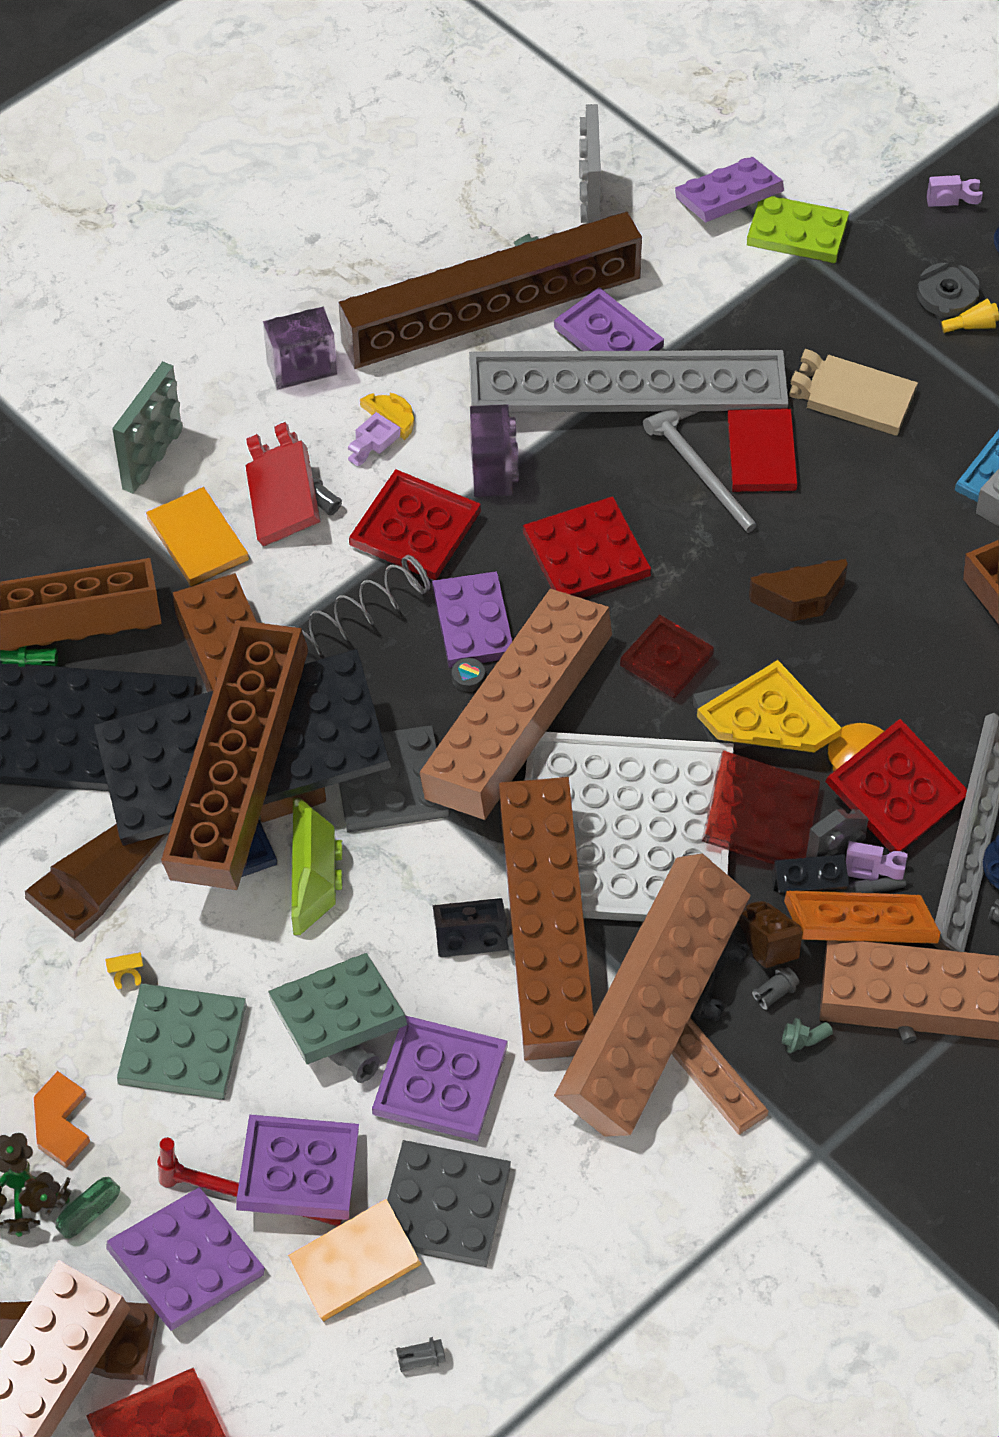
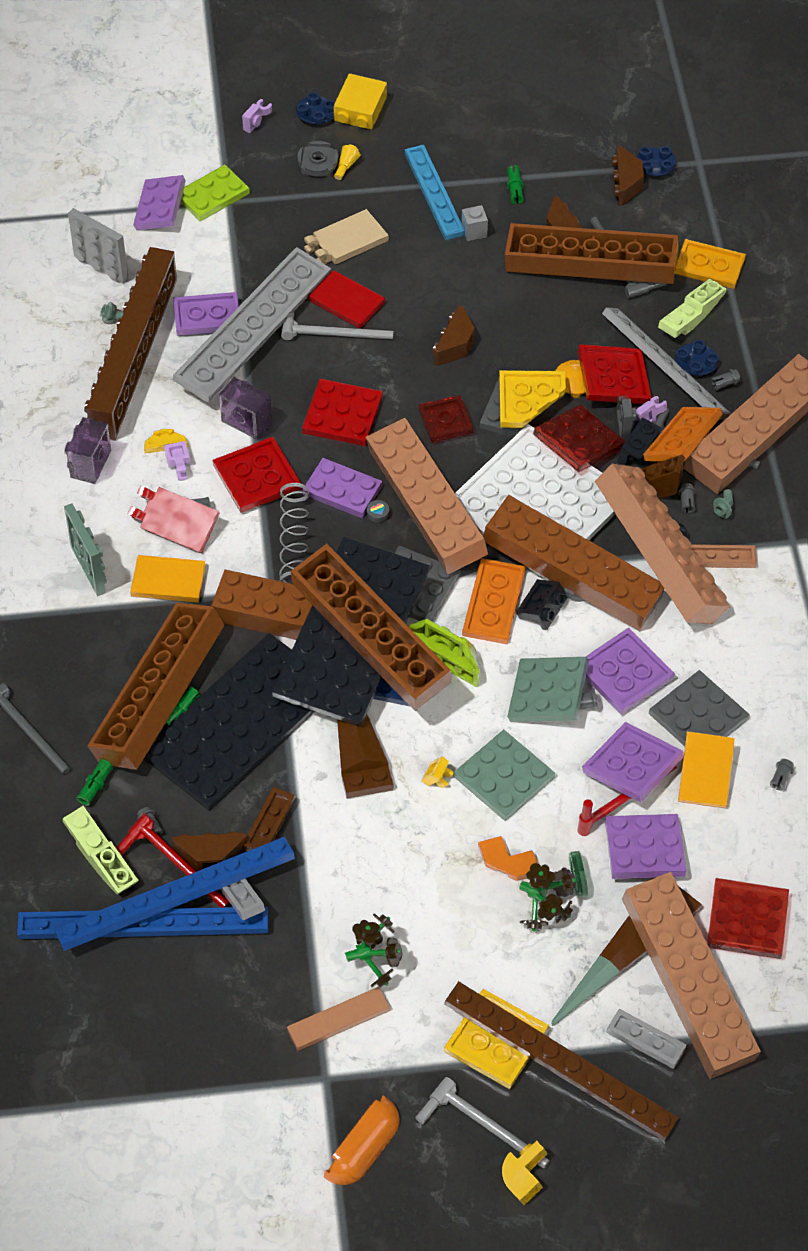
camera: 55 degrees left, 0 degrees up
(434, 874) = (493, 601): none -> orange tile

